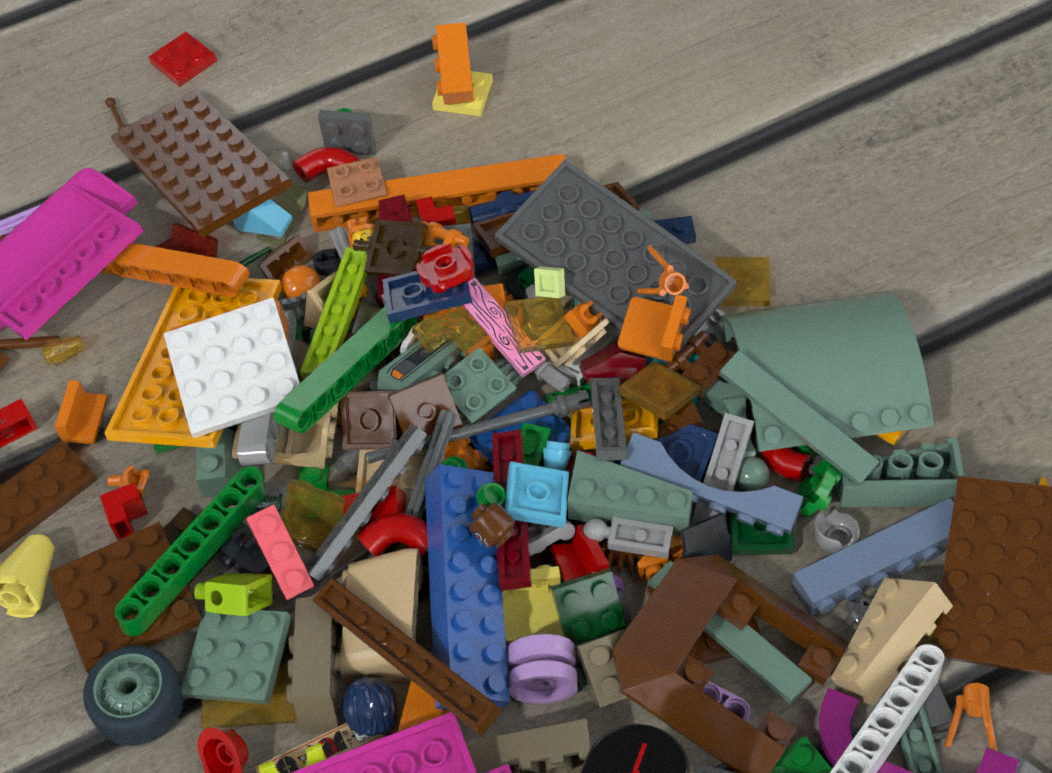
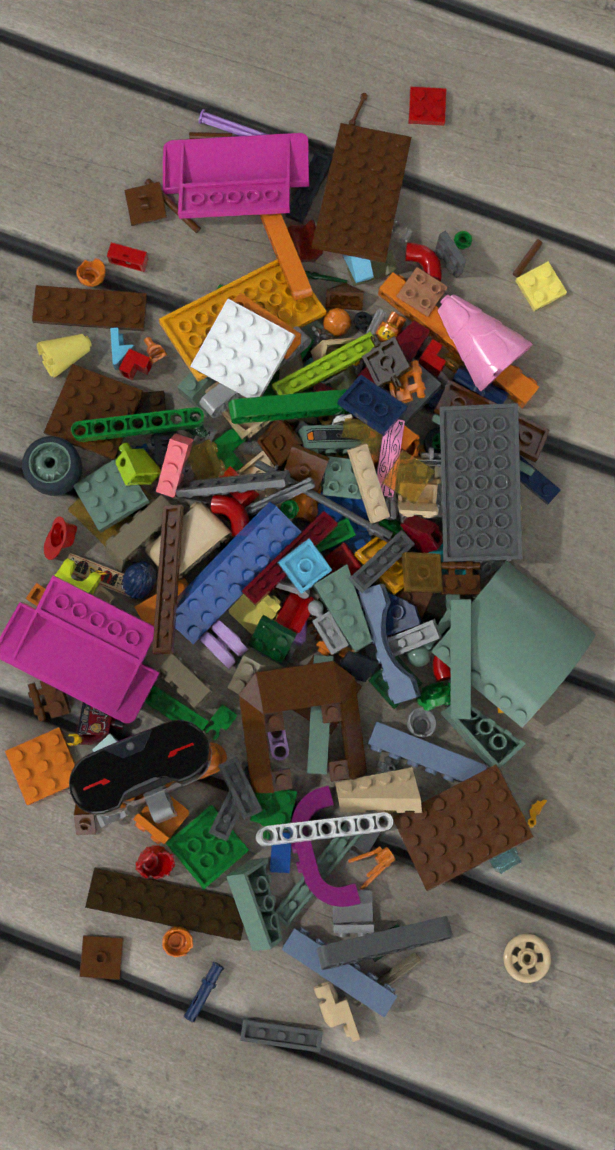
camera: 40 degrees right, 25 degrees up
(61, 349) = (193, 238): clear yellow cone -> none
(80, 414) = (167, 287): orange panel -> none
(88, 515) = (118, 348): none -> medium azure slope
(142, 212) = (305, 195): none -> black plate
(422, 83) = (528, 257): none -> reddish brown piece
(453, 63) = (546, 270): orange wedge -> none
(458, 268) = (391, 414): red plate -> none
(461, 164) = (480, 339): none -> bright pink cone
(491, 493) = (282, 546): green plate -> none
(492, 525) = (266, 562): reddish brown head -> none
(507, 363) = (368, 483): none -> tan plate
(549, 282) = (435, 462): yellowish green plate -> none
(556, 455) = (339, 553): medium azure cone -> none
(583, 319) = (432, 496): orange tile -> none
(654, 327) = (454, 540): orange bracket -> none
(669, 281) = (481, 531): orange plant -> none
(751, 277) = (541, 552): clear yellow plate -> none

